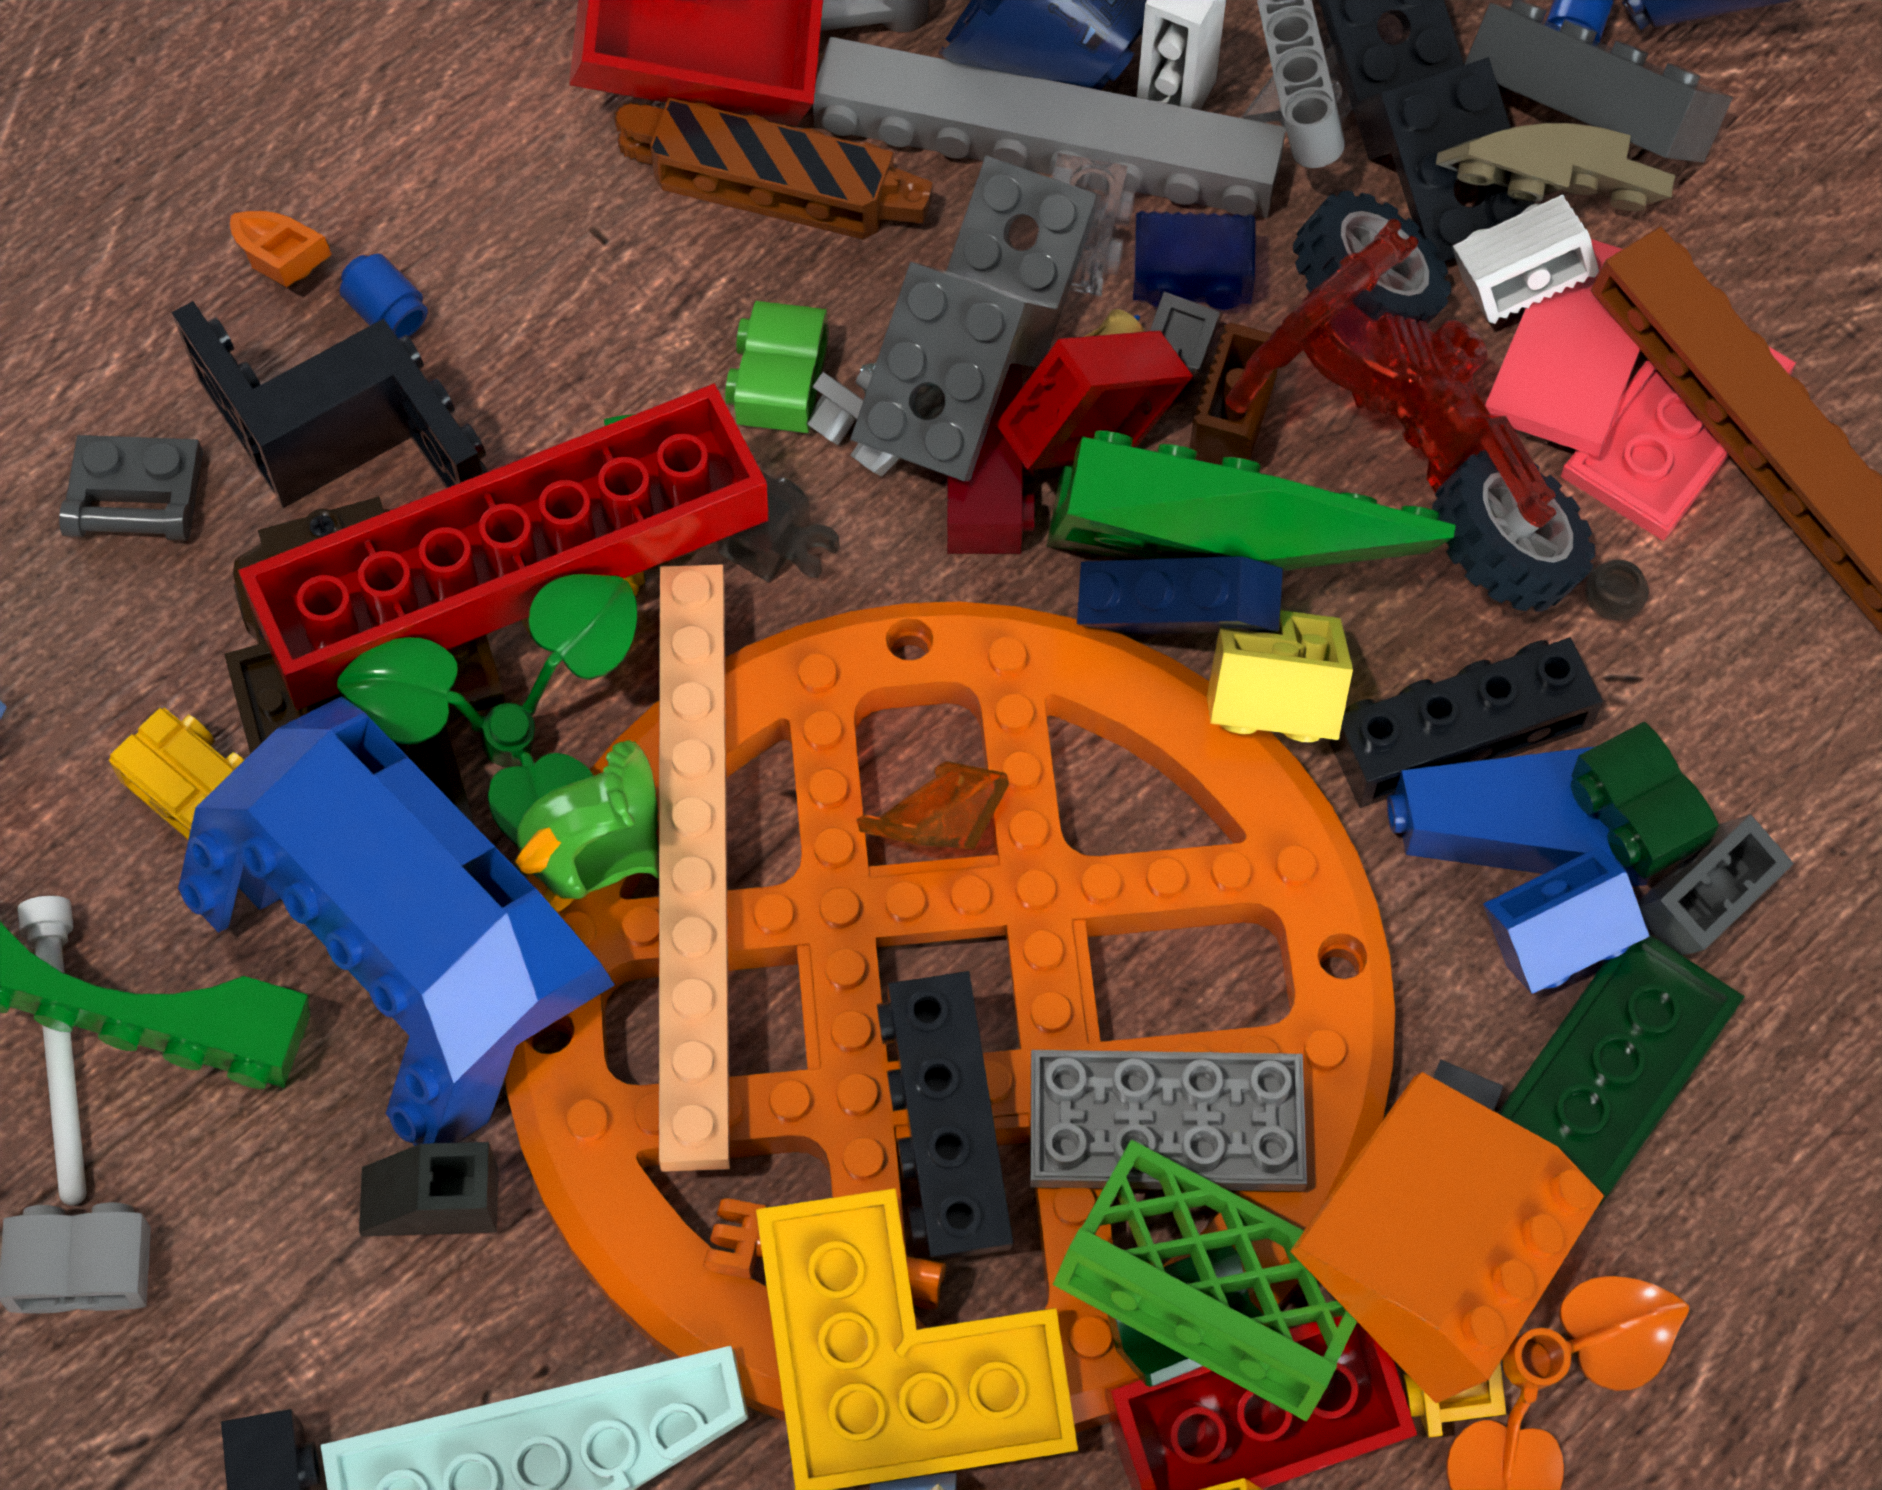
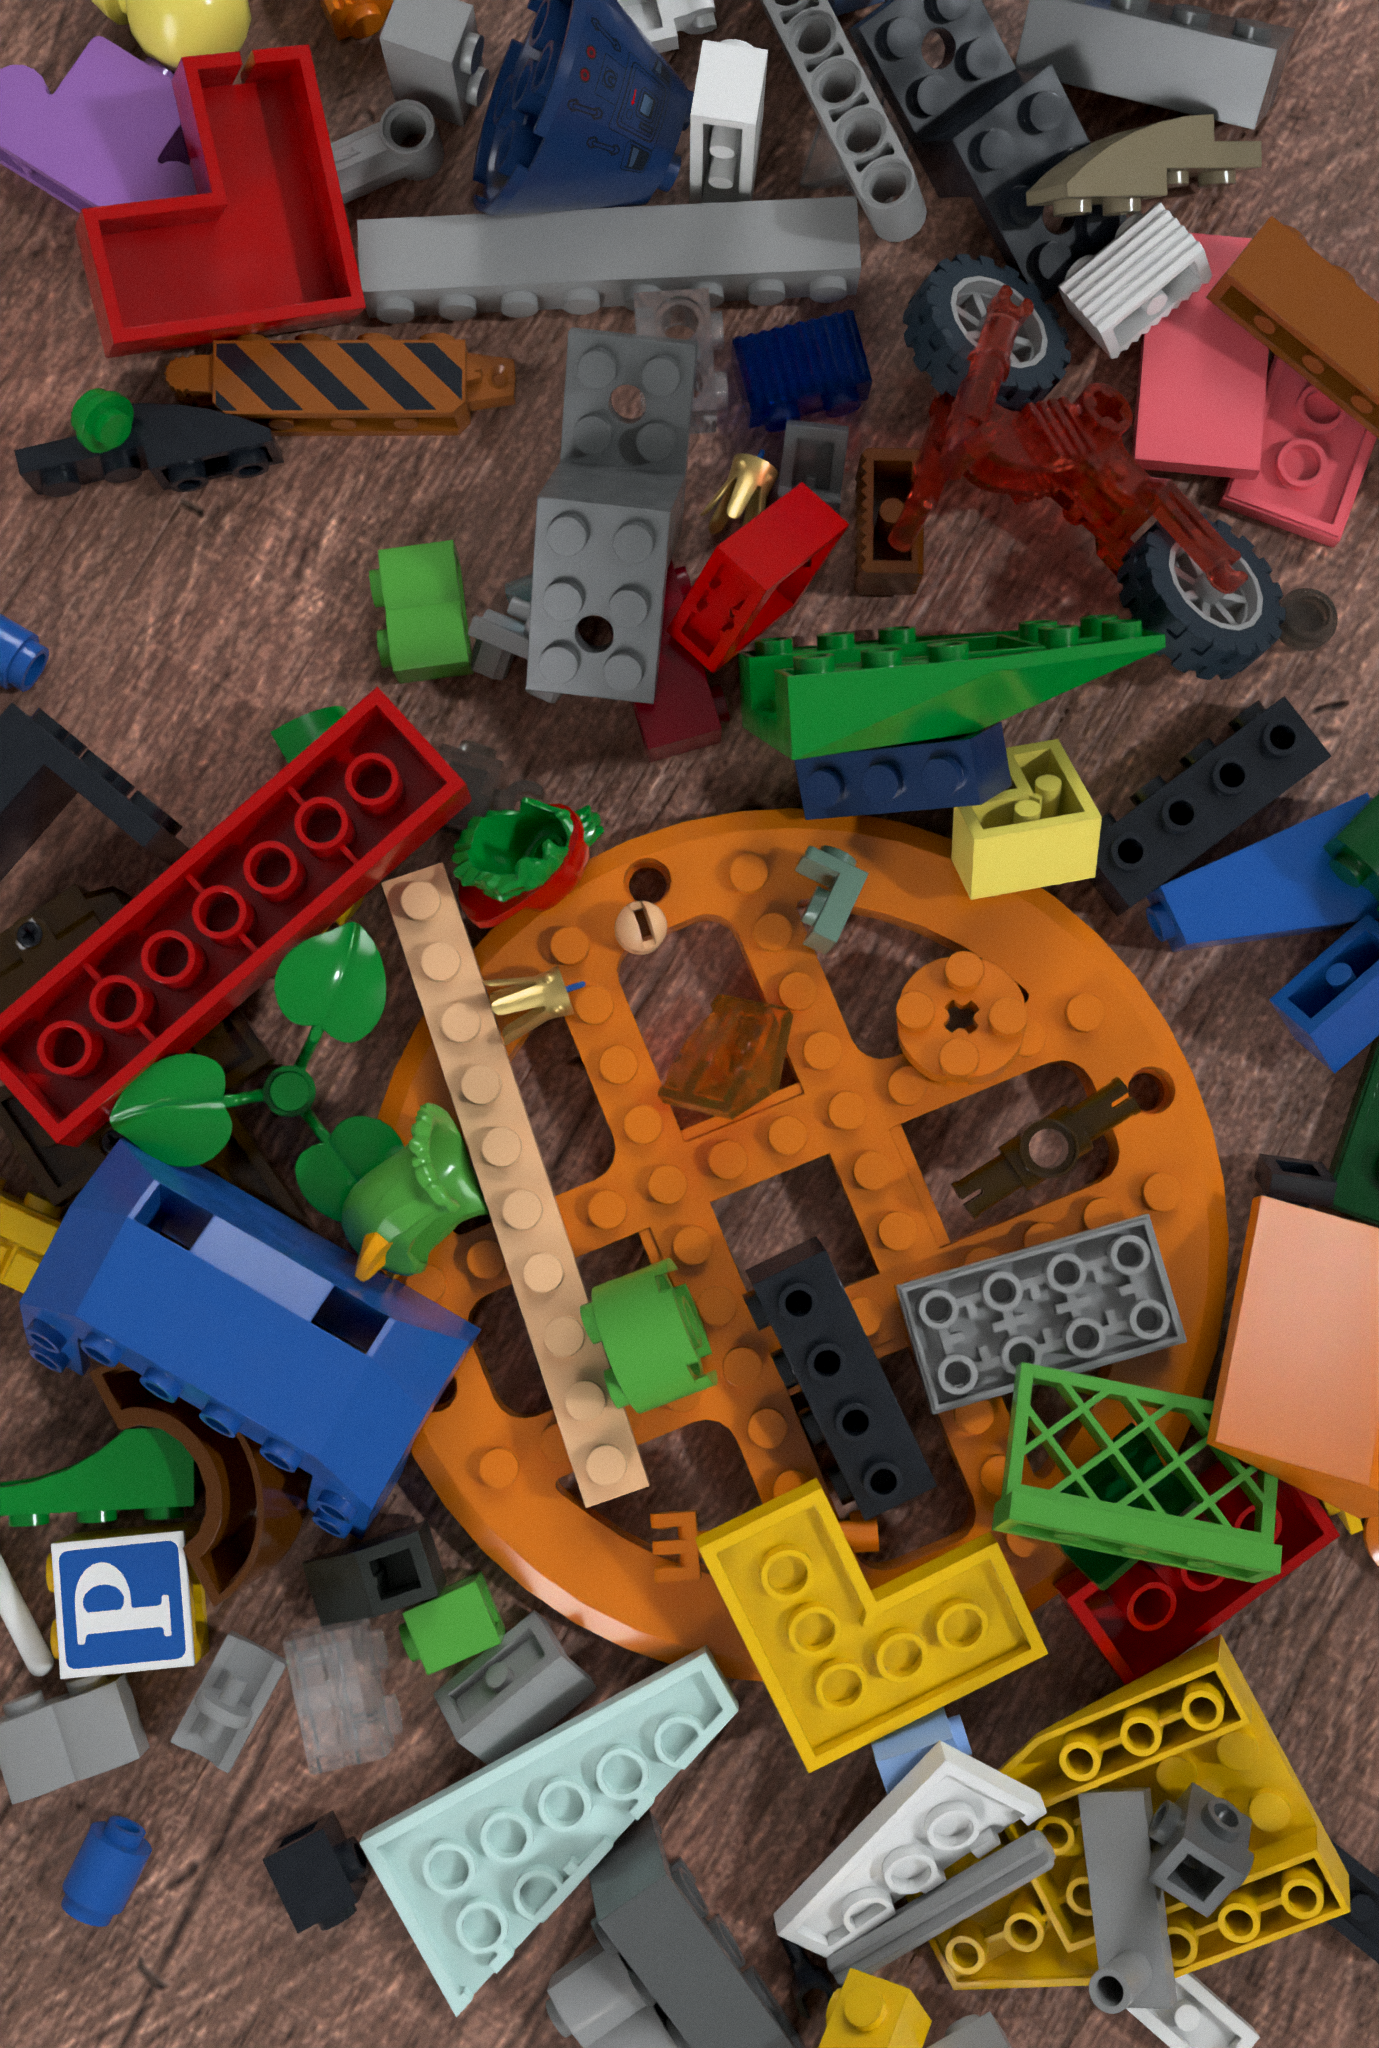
camera: 20 degrees left, 20 degrees up
(60, 1400) = (105, 1871): none -> blue brick
(184, 1146) = (126, 1601): none -> piece
(244, 1268) = (230, 1701): none -> light grey hips
(344, 1053) = (249, 1502): none -> reddish brown brick
(355, 1298) = (342, 1694): none -> clear brick
(488, 1264) = (452, 1624): none -> bright green brick
(527, 1349) = (513, 1691): none -> light grey panel
(548, 128) = (102, 419): none -> green plate
(602, 171) = (173, 441): none -> black slope
(776, 1016) = (649, 1338): none -> bright green brick
(777, 695) = (542, 992): none -> pearl gold piece
(799, 582) = (522, 859): none -> green hair
(876, 672) = (628, 930): none -> light nougat hinge
(1080, 688) = (829, 908): none -> sand green bracket
(1177, 801) = (958, 1055): none -> orange plate
(1248, 950) = (1076, 1131): none -> dark brown pin

